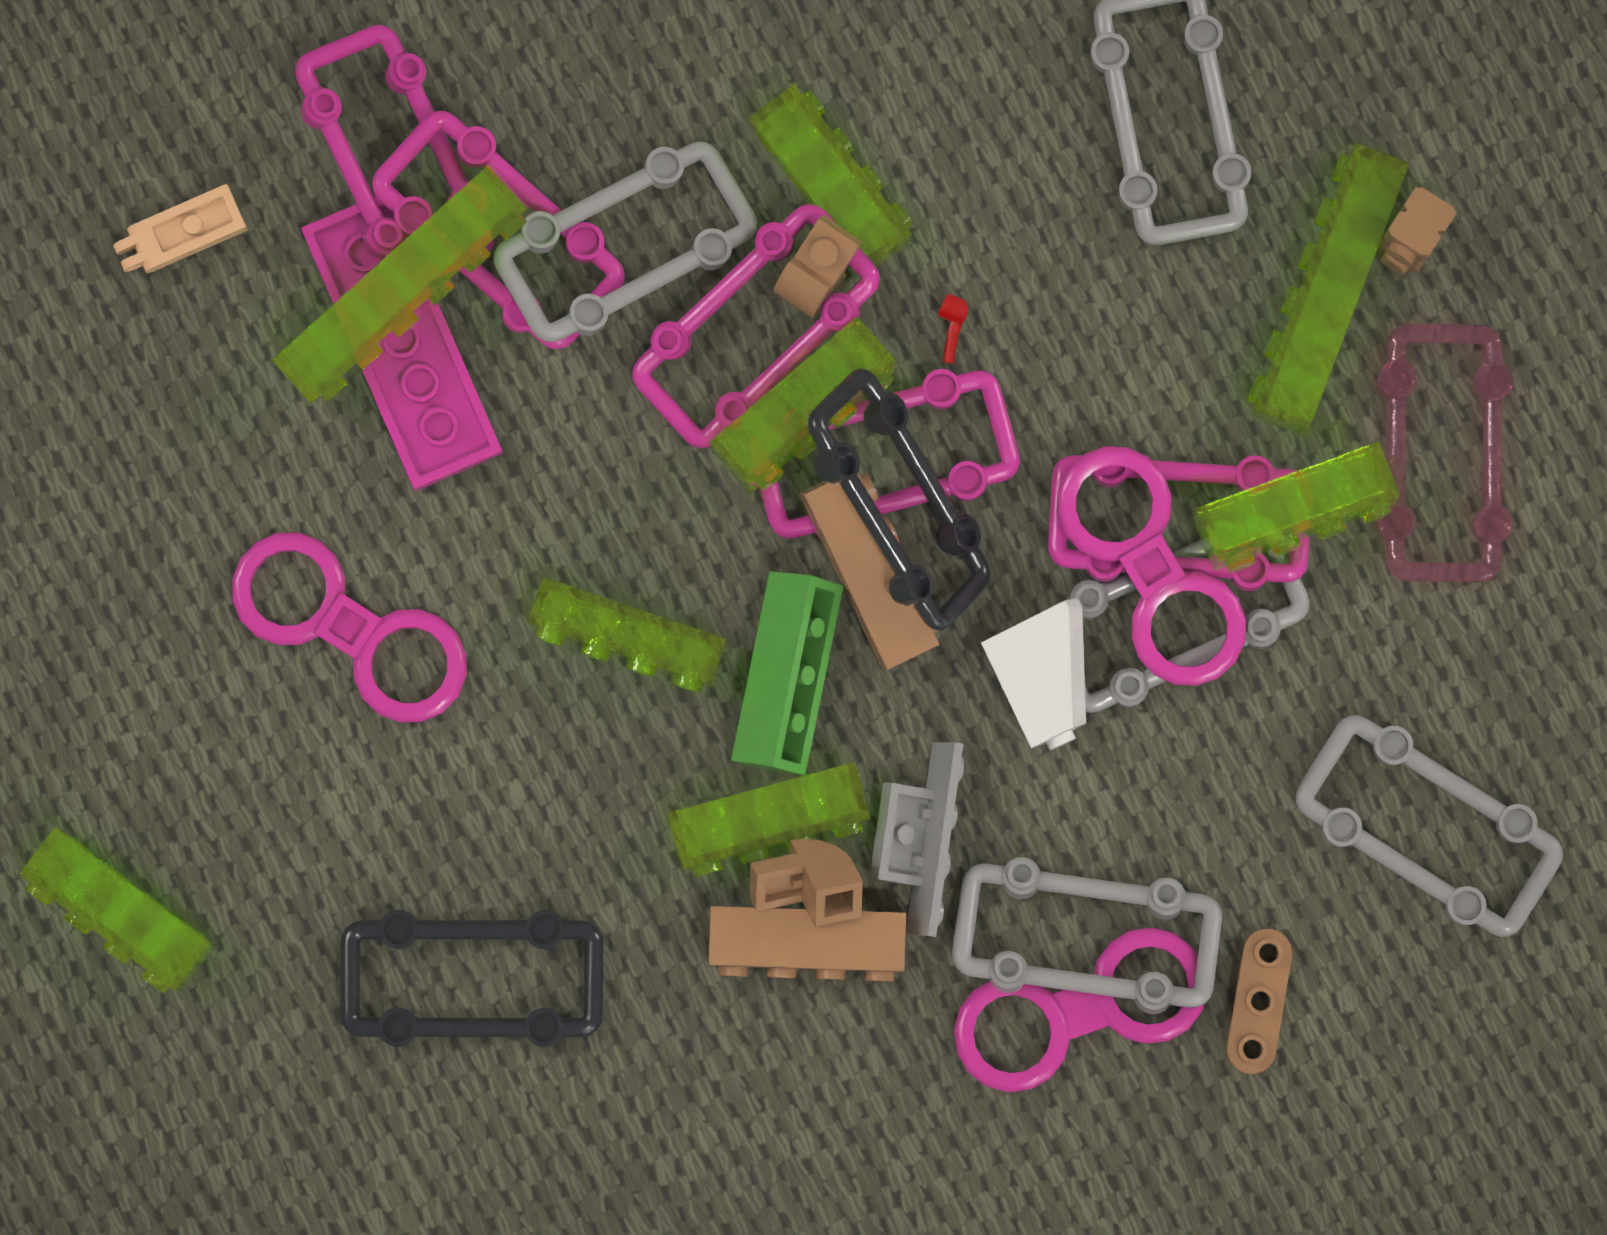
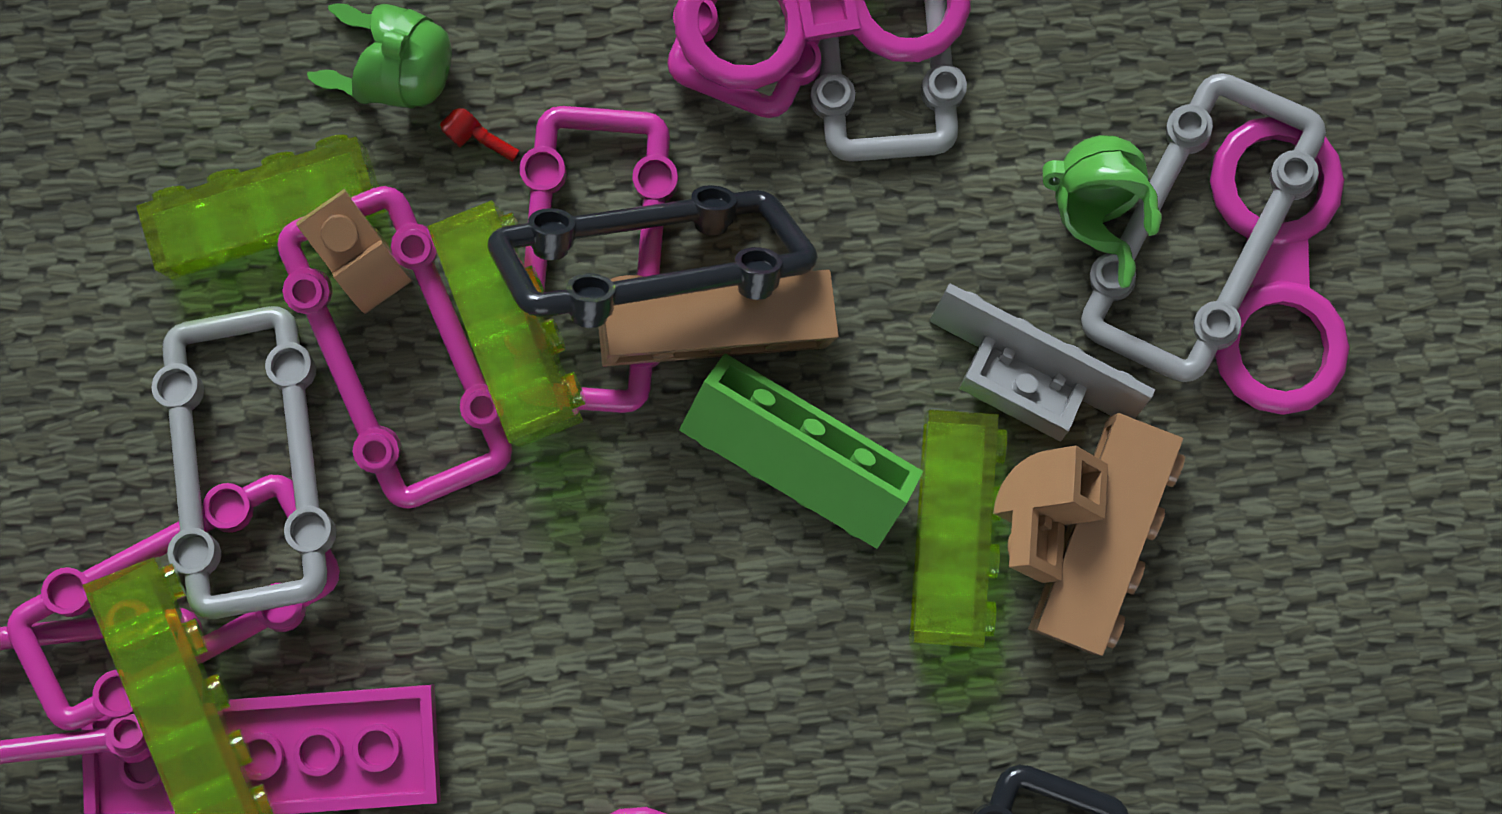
camera: 75 degrees left, 0 degrees up
(628, 633) = (690, 615): clear neon green brick -> none
(987, 250) = (403, 65): none -> bright green hair
(1044, 673) = (900, 169): white slope -> none
(1089, 836) = (1099, 183): none -> bright green hair
(1245, 1020) = (1307, 70): medium nougat plate -> none

